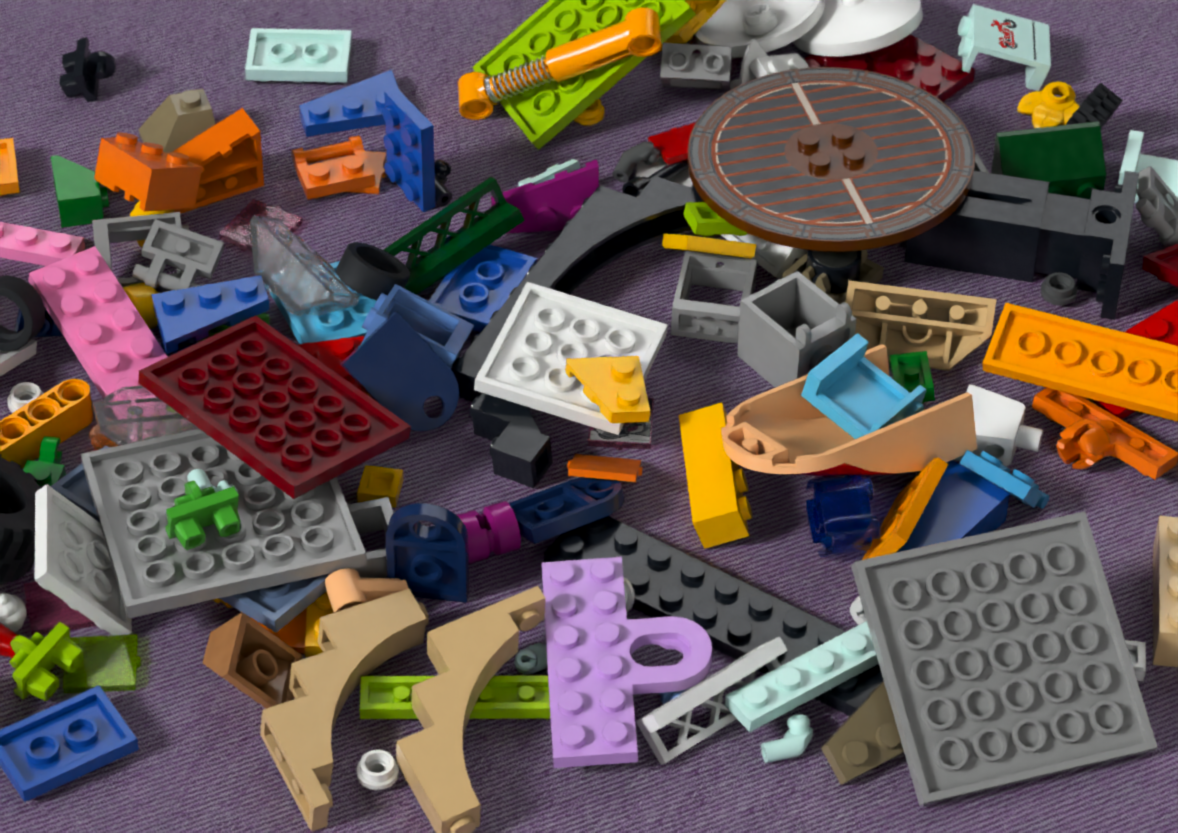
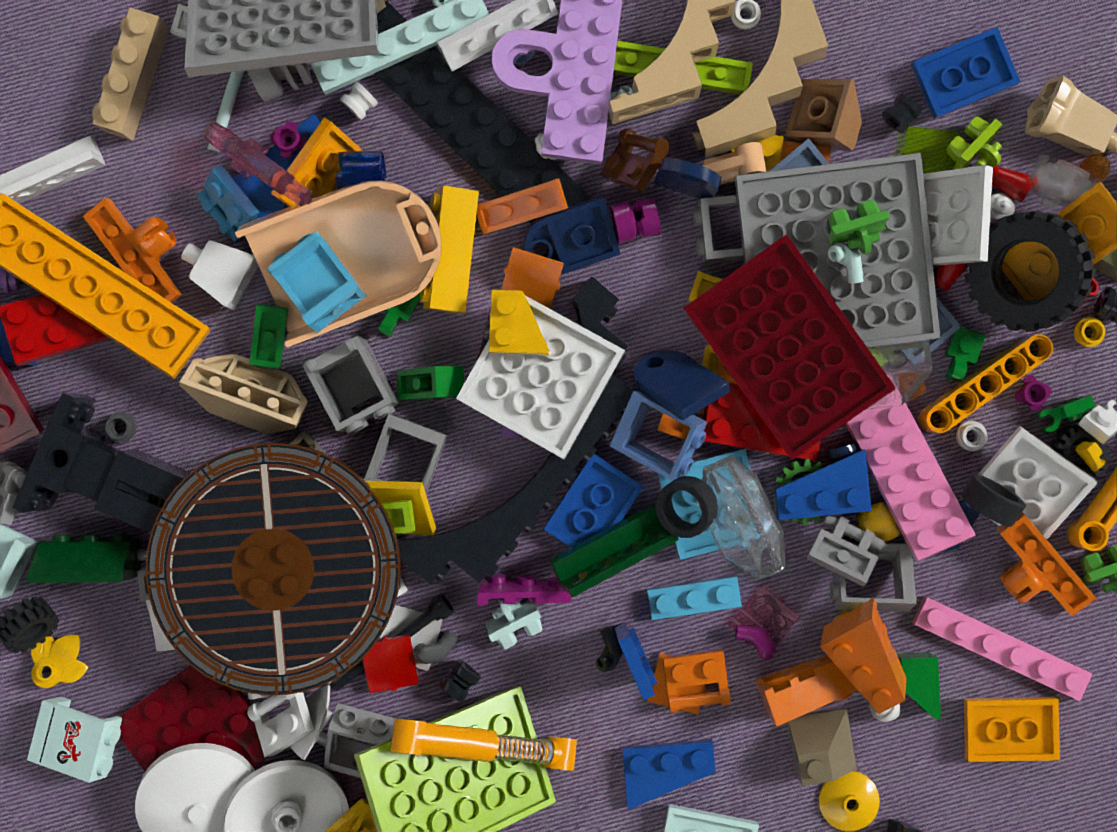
camera: 165 degrees left, 45 degrees up
(135, 105) = (836, 794): none -> yellow dish
(148, 686) = (901, 113): none -> black wheel
(266, 205) = (760, 638): none -> magenta arm
(334, 236) = (694, 597): none -> medium azure plate
(496, 569) = (632, 169): none -> reddish brown plate
(601, 137) = (460, 680): none -> black wheel
(635, 523) = (521, 206): none -> orange tile
(701, 361) = (430, 382): none -> green slope
(946, 527) = (282, 133): none -> magenta plate
(985, 495) = (251, 159): none -> clear pink piece

